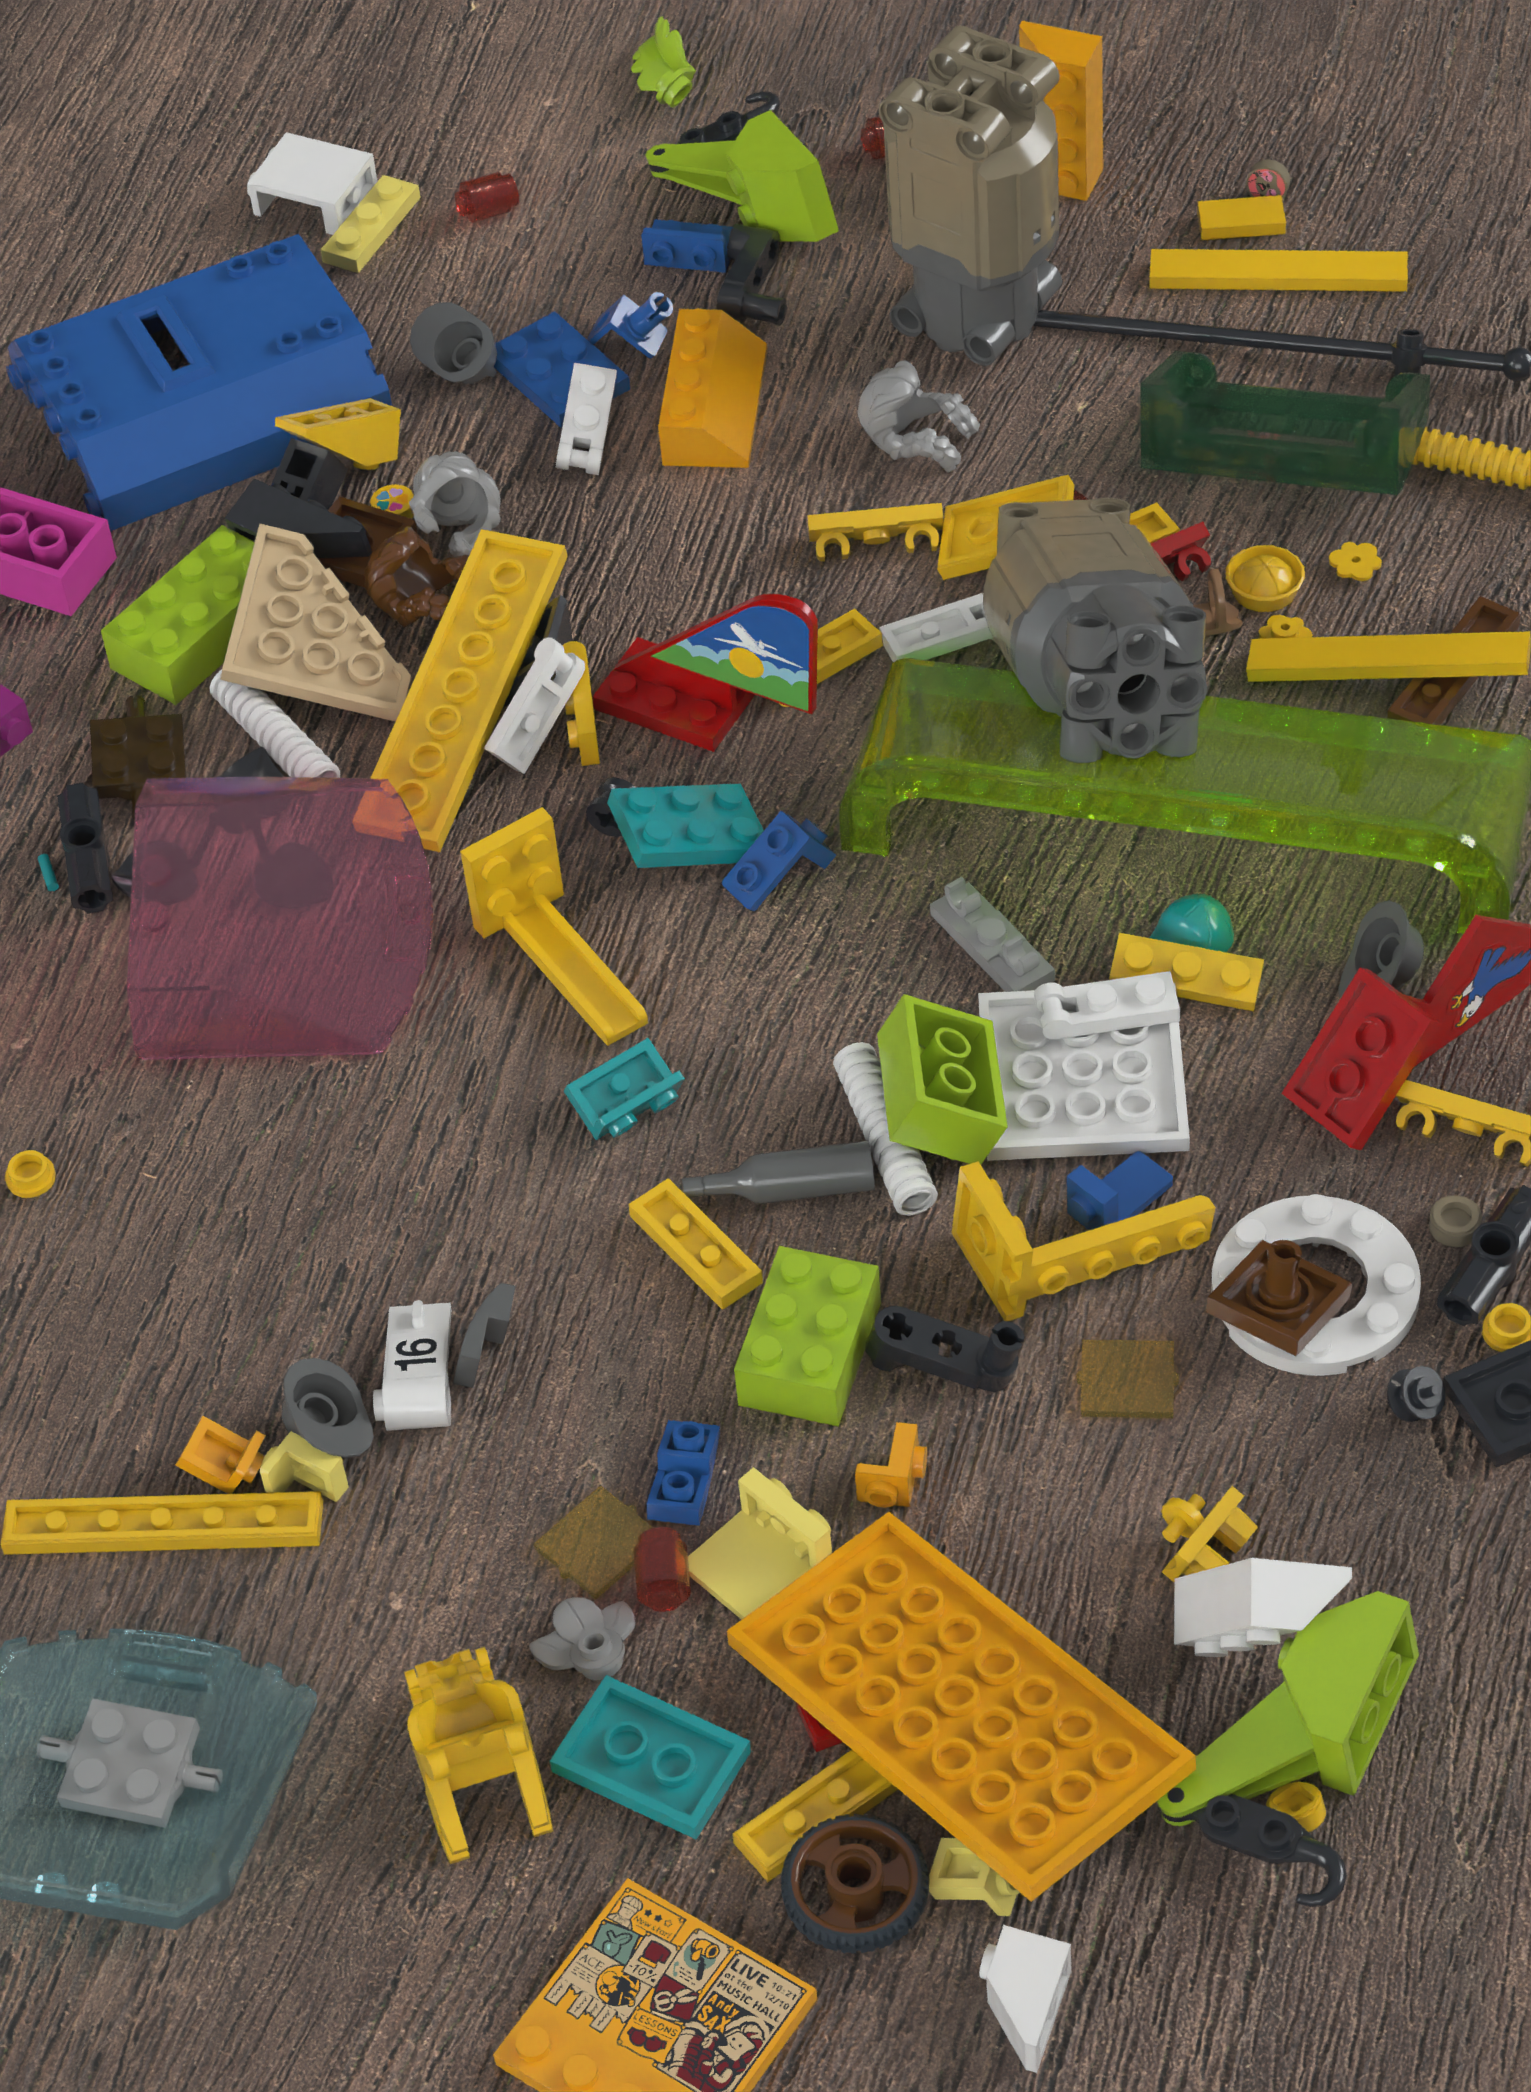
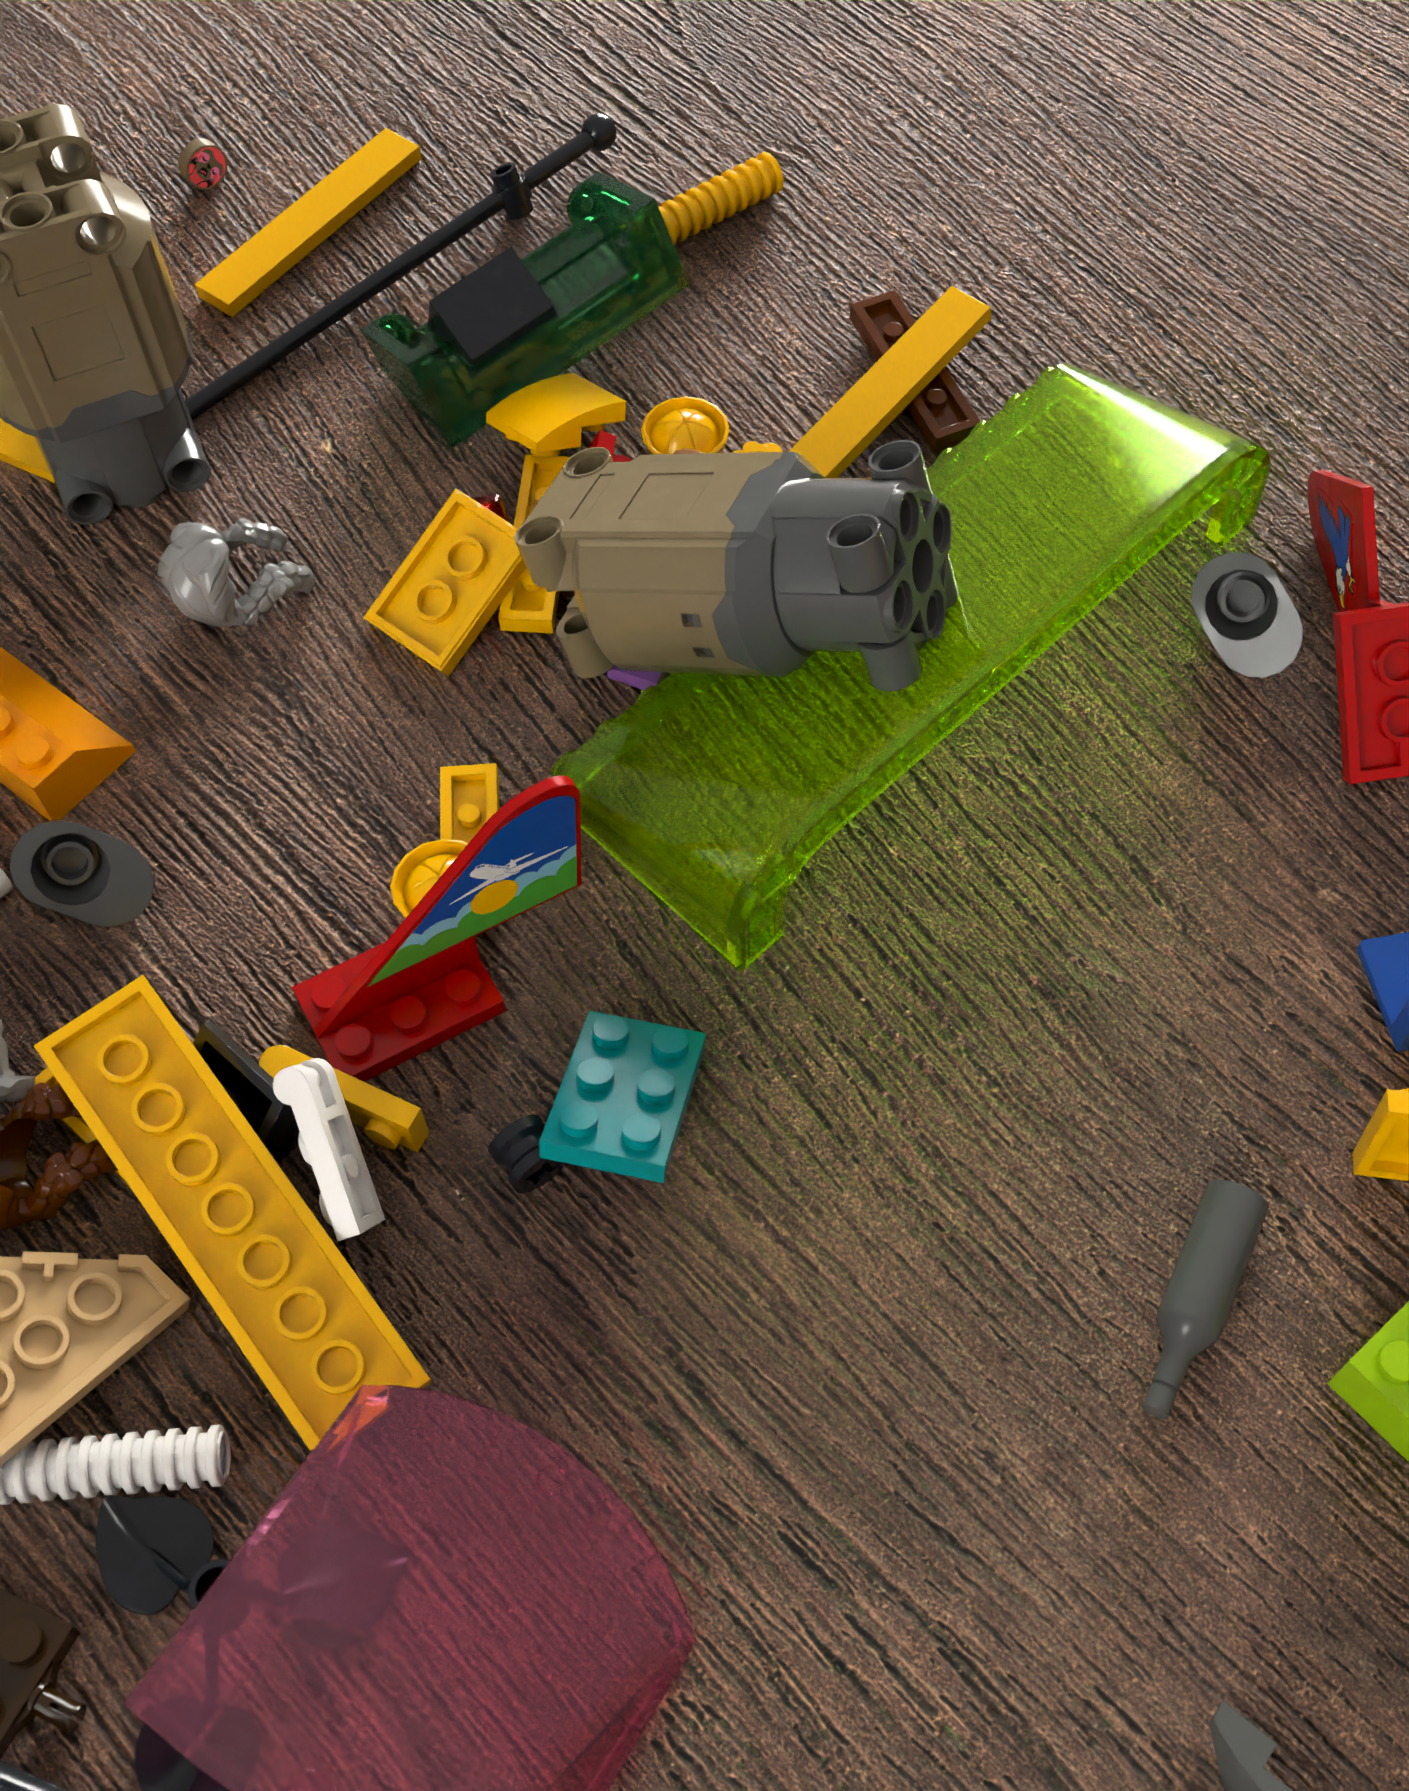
camera: 60 degrees left, 10 degrees up
(511, 888) = (696, 1337): yellow bracket -> none
(623, 1089) = (969, 1391): teal bracket -> none
(627, 490) = (82, 873): none -> dark grey piece
(695, 1244) = (1241, 1446): yellow plate -> none
(774, 856) = (732, 1042): blue bracket -> none
(875, 527) = (342, 689): yellow plate -> none
(899, 1165) = (1191, 1153): white piece -> none
(937, 630) = (530, 712): white plate -> none
(941, 1080) = (1196, 1061): lime brick -> none
(990, 938) = (979, 909): light grey plate -> none
(1086, 1090) = (1221, 933): white plate -> none
(1107, 1005) = (1170, 854): white plate -> none
(1196, 922) = (1090, 745): teal piece -> none
(1196, 971) = (1146, 770): yellow plate -> none
(1210, 490) = (555, 412): none -> yellow slope
(1241, 217) = (219, 208): yellow tile -> none
(1251, 398) = (489, 308): none -> black slope
(1355, 561) = (719, 364): yellow plant -> none

